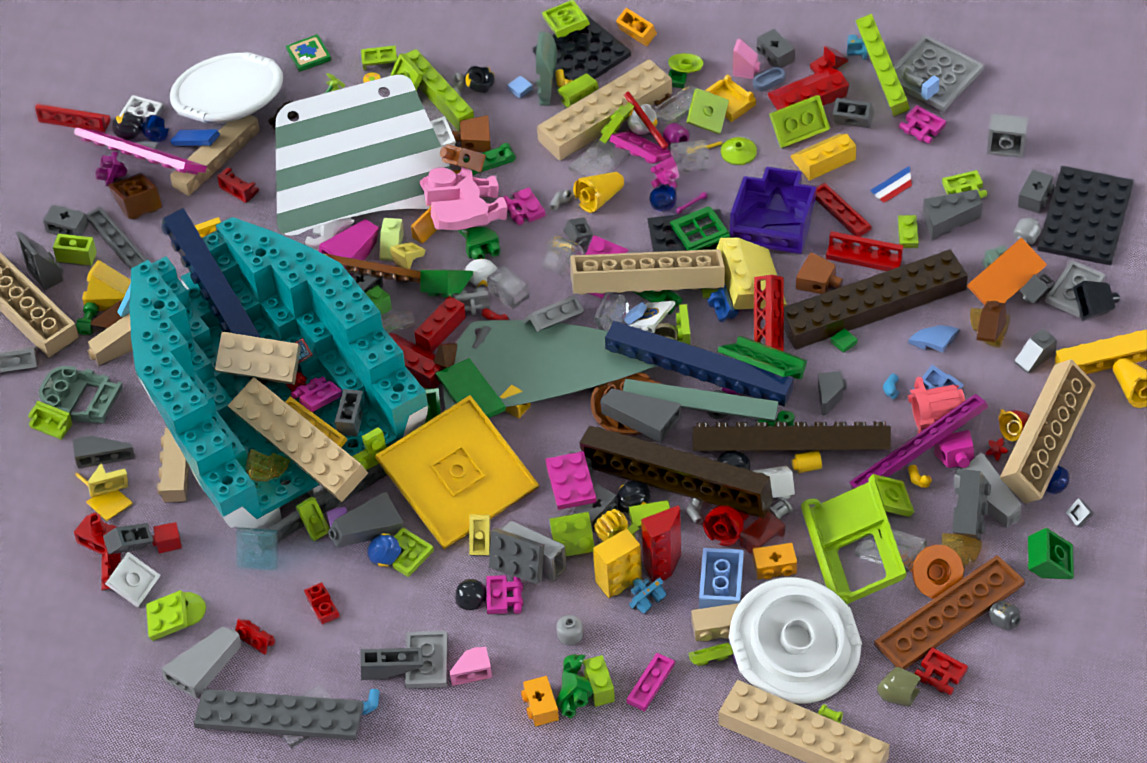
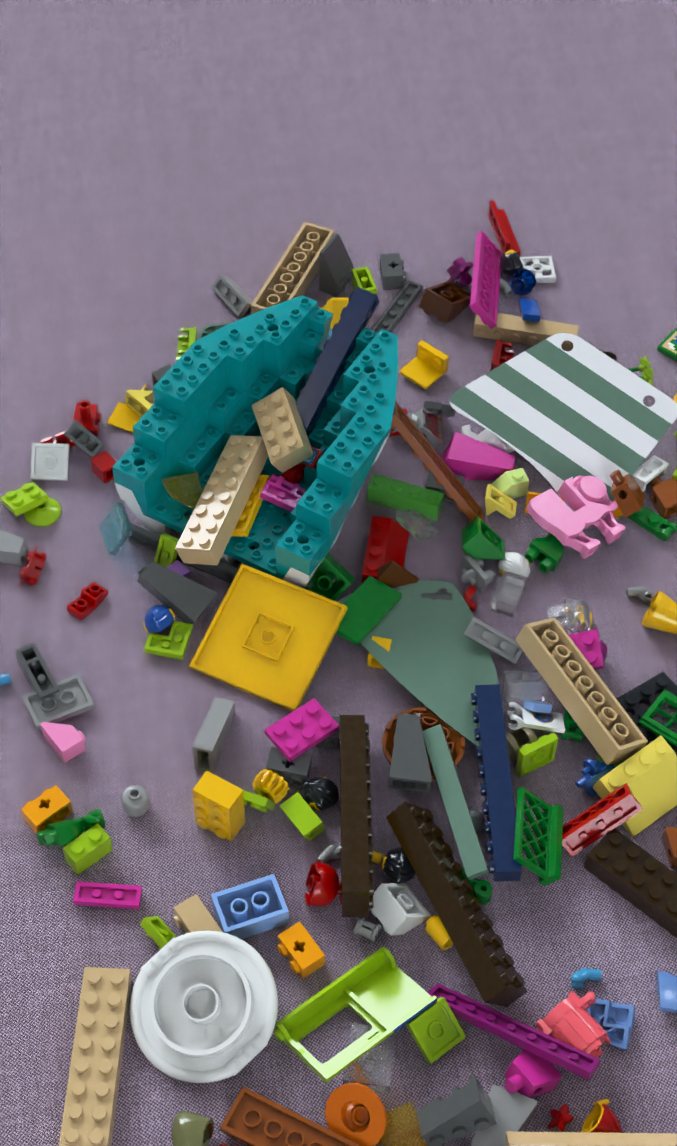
camera: 60 degrees right, 0 degrees up
(226, 87) = (592, 304): white piece -> none
(350, 412) = (271, 523): dark grey brick -> none
(373, 443) = (251, 556): lime plate -> none
(440, 324) = (433, 559): red brick -> none
(470, 594) = (146, 706): black hair -> none
(479, 534) = (211, 686): light yellow slope -> none
(497, 594) = (153, 728): dark pink plate -> none
(516, 555) = (192, 720): dark grey plate -> none
(528, 205) = (619, 571): dark pink plate -> none
(573, 532) = (244, 758): lime plate -> none
(578, 231) = (611, 618): dark grey brick -> none
(640, 600) = (216, 855): dark azure hips -> none
(661, 543) = (253, 833): red slope -> none
(761, 532) = (329, 923): clear red panel -> none
(830, 390) = (543, 918): dark grey slope -> none
(831, 714) = (131, 1079): lime bush -> none
(844, 340) = (619, 907): green tile -> none
(921, 481) = (477, 1050): yellow arm -> none

